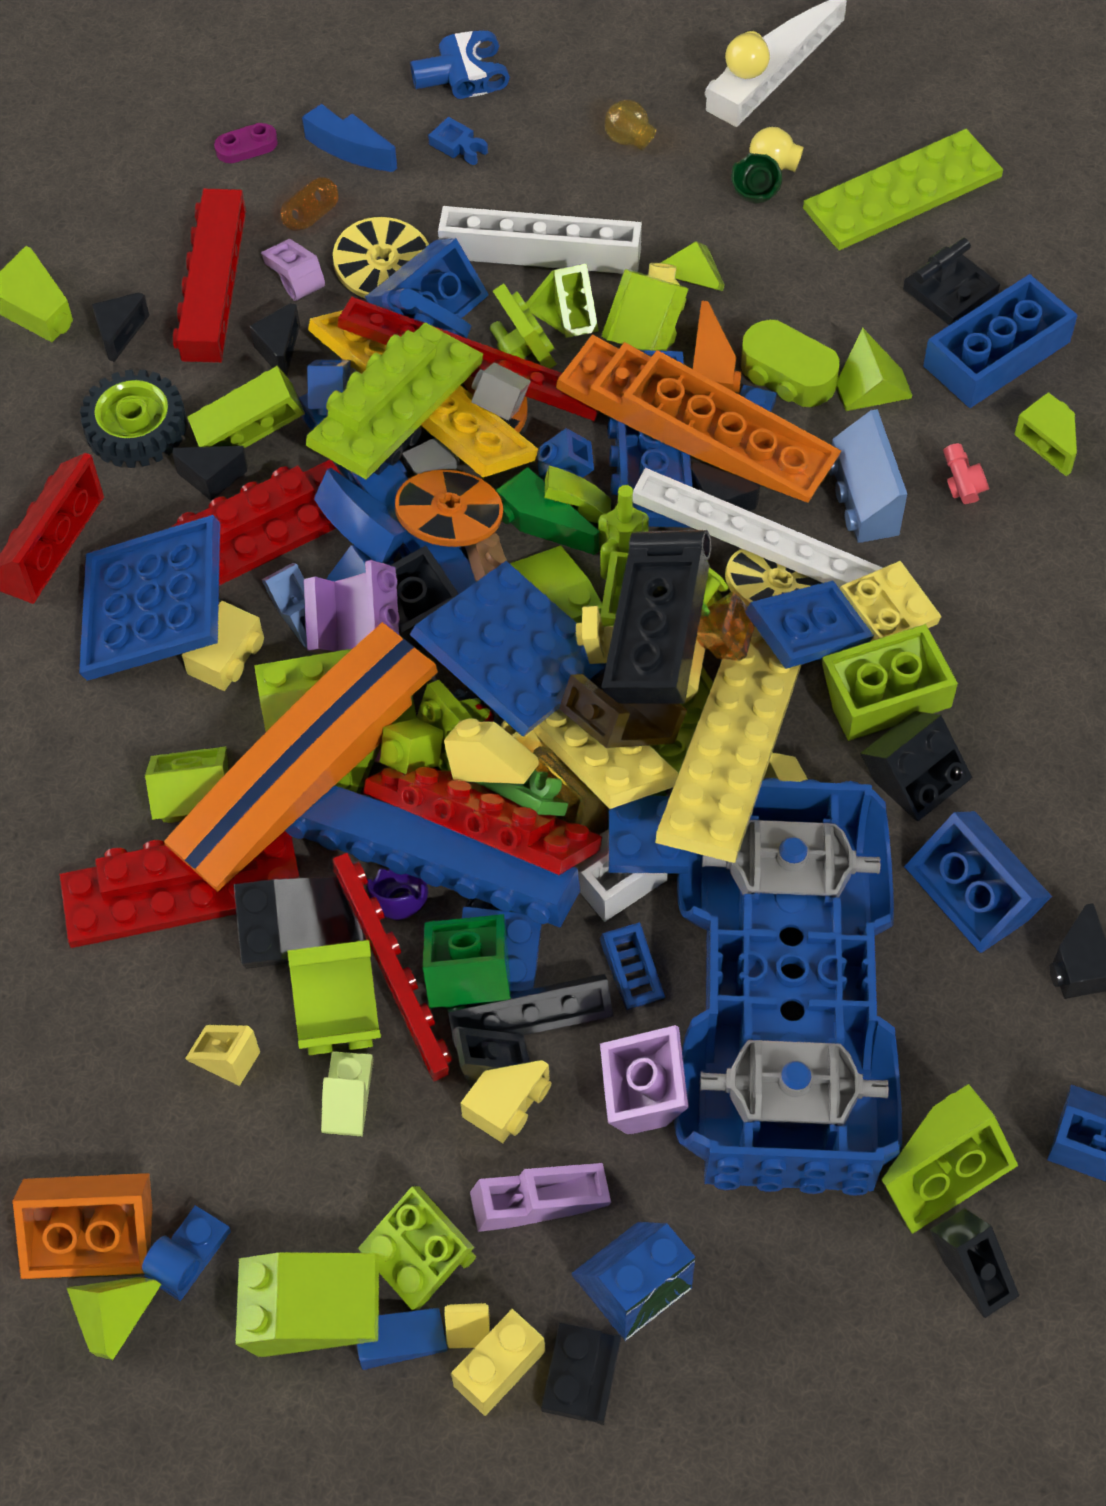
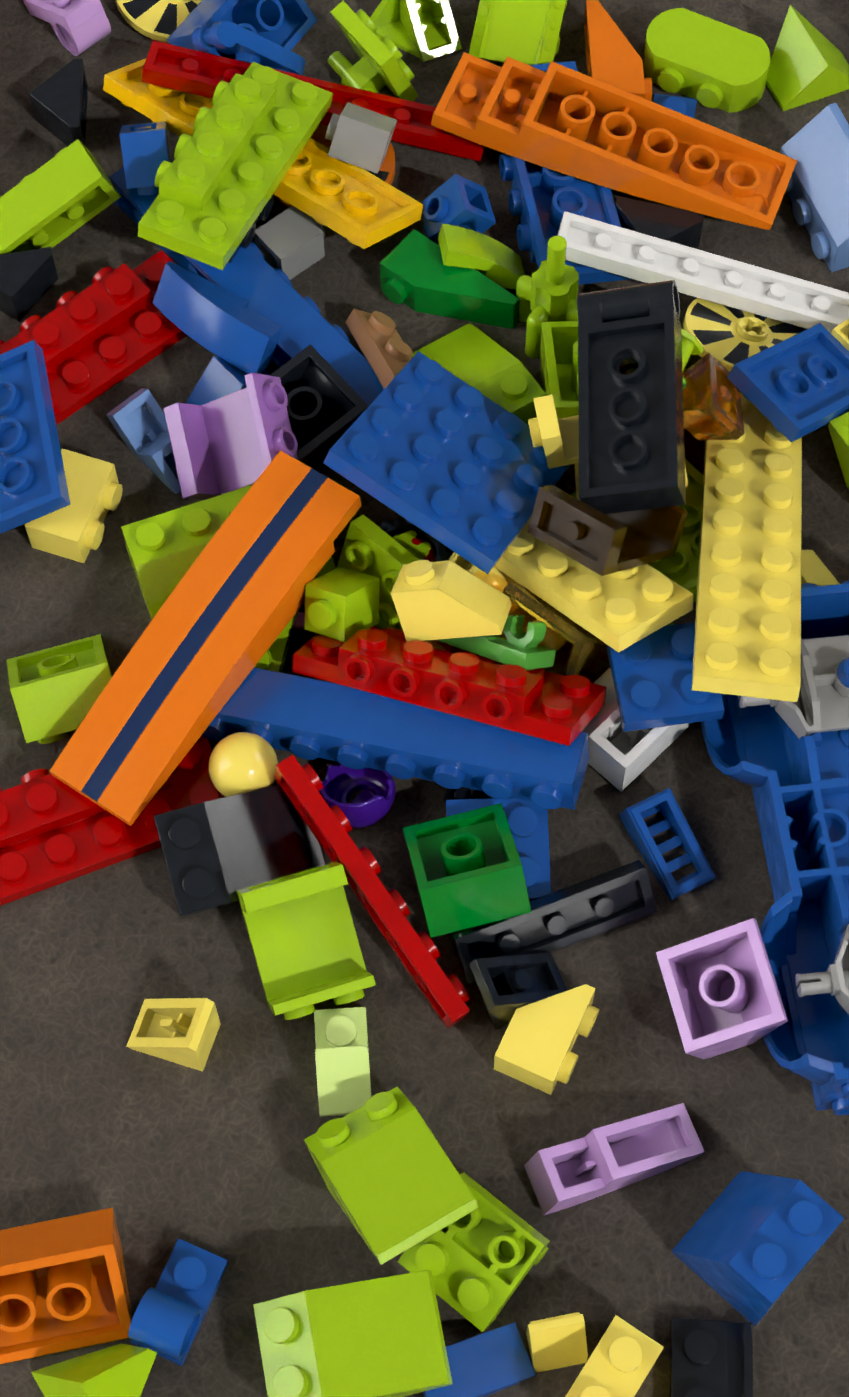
camera: 10 degrees left, 5 degrees up
(311, 856) = (242, 764): none -> light yellow piece
(359, 1176) = (389, 1174): none -> lime slope
(472, 513) = (326, 293): orange piece -> none

